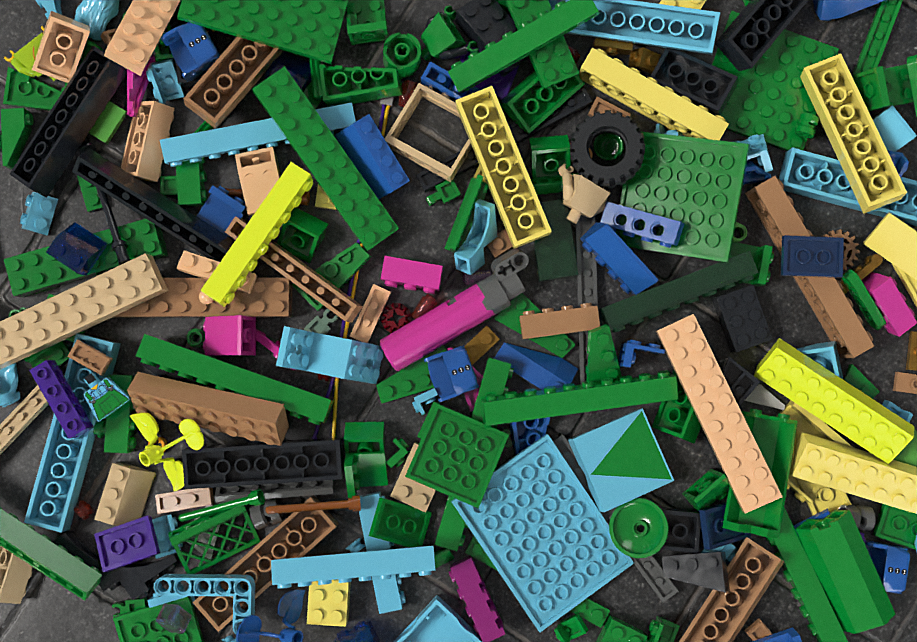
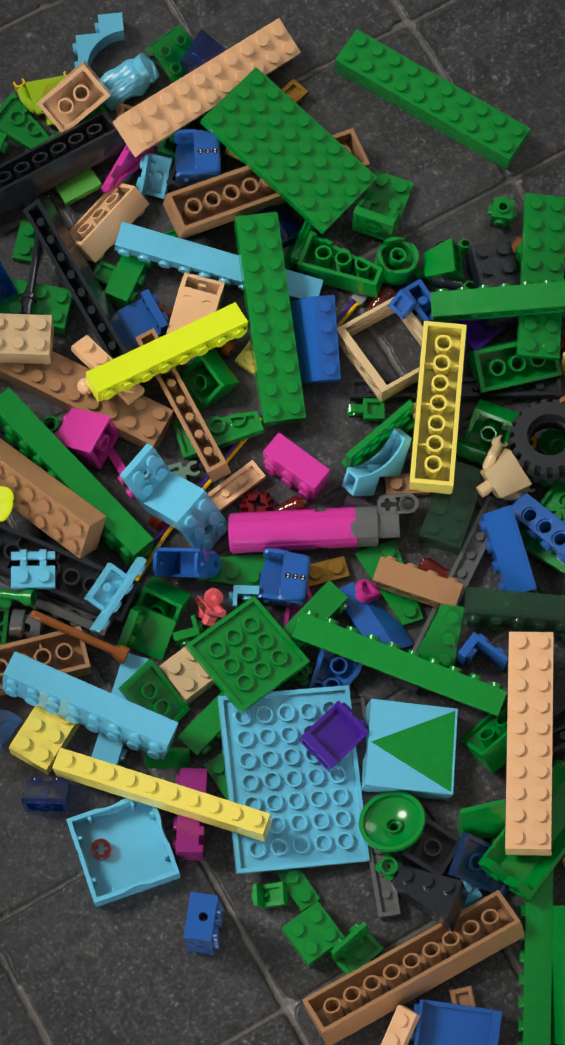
camera: 20 degrees right, 15 degrees down
(250, 481) = (33, 576): none -> medium azure plate
(319, 461) = (110, 589): none -> medium azure bracket
(366, 400) = (186, 562): none -> blue piece
(405, 426) = (210, 607): none -> coral hips
(427, 91) = (402, 304): none -> blue tile
(449, 604) = (162, 794): none -> light yellow brick
(519, 346) = (366, 592): none -> dark pink tile
(558, 300) = (429, 564): none -> clear red cone
(558, 483) = (334, 735): none -> dark purple panel
(655, 566) = (388, 860): none -> green plate

